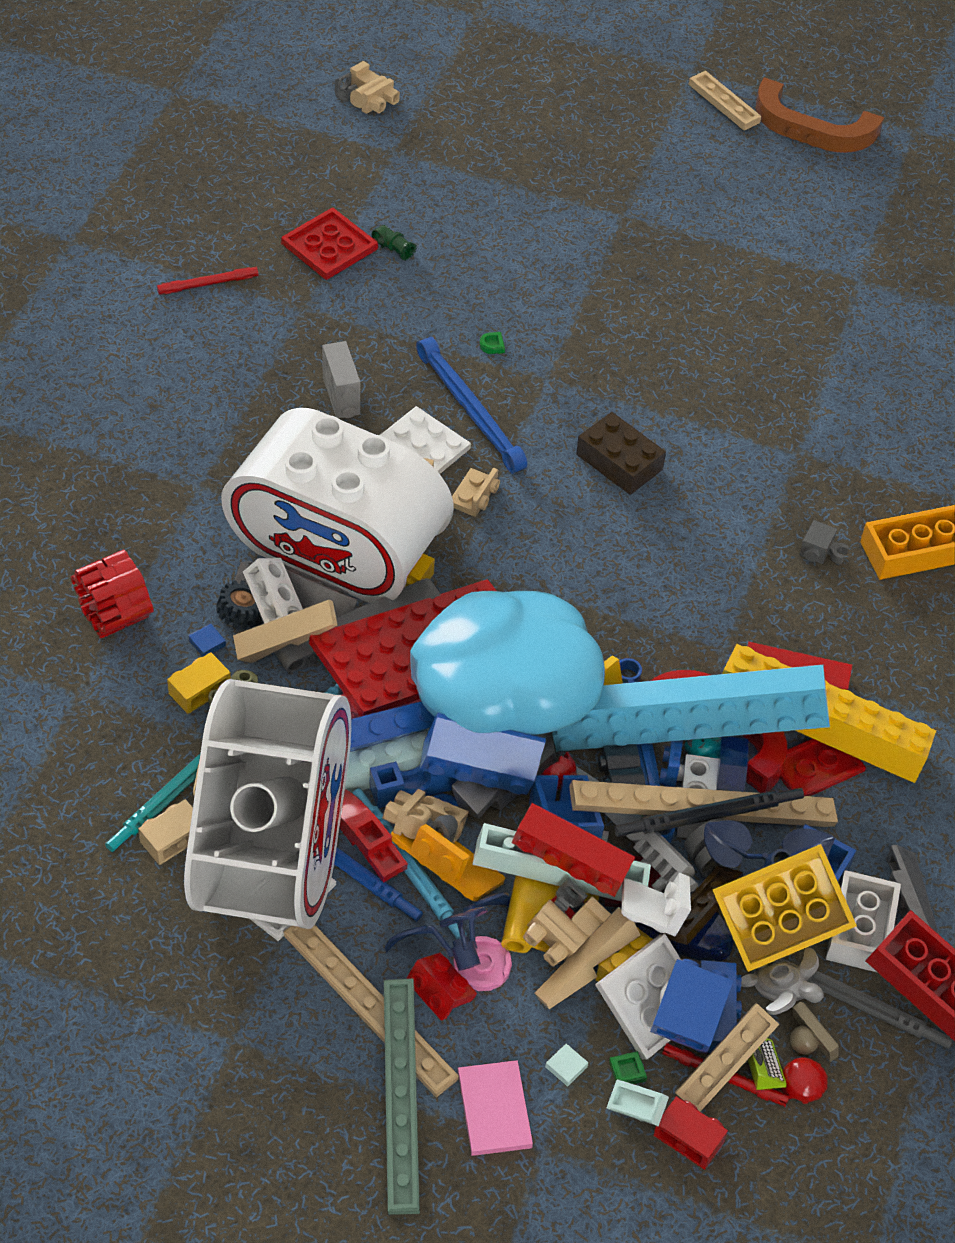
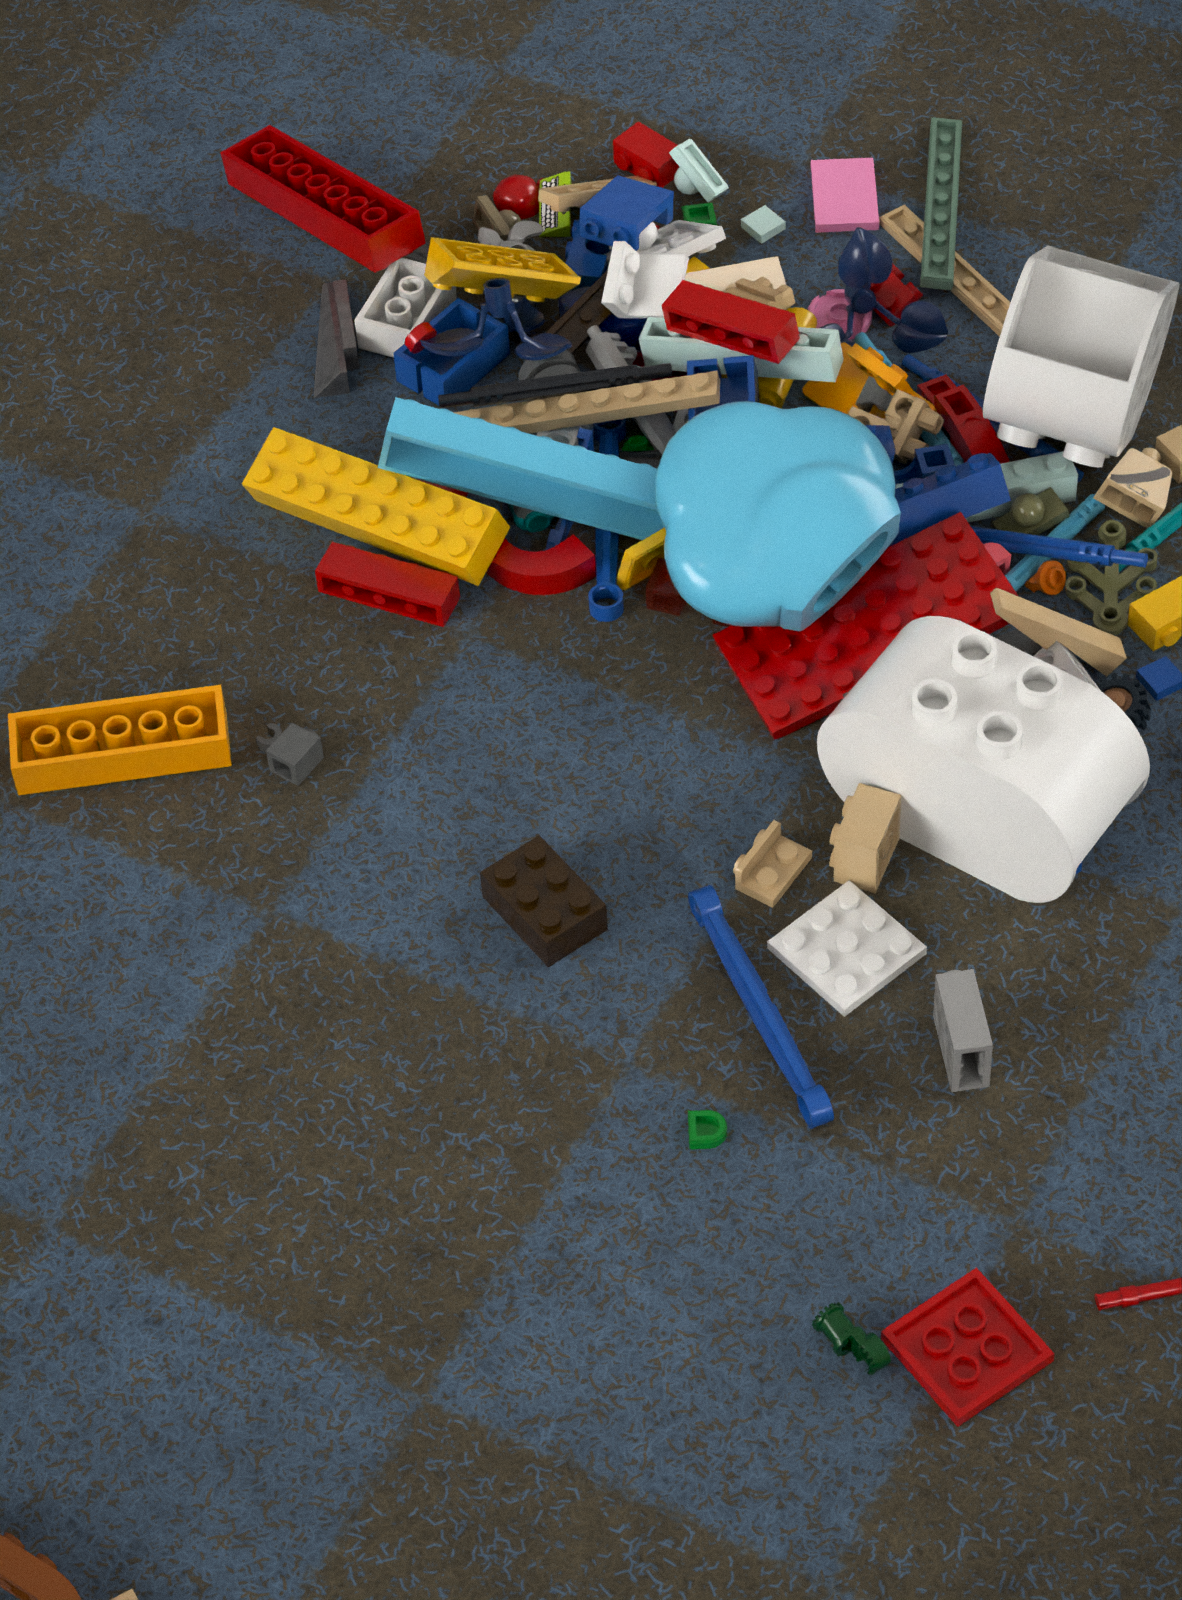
camera: 165 degrees left, 0 degrees up
(837, 852) = (421, 332): none -> red tile

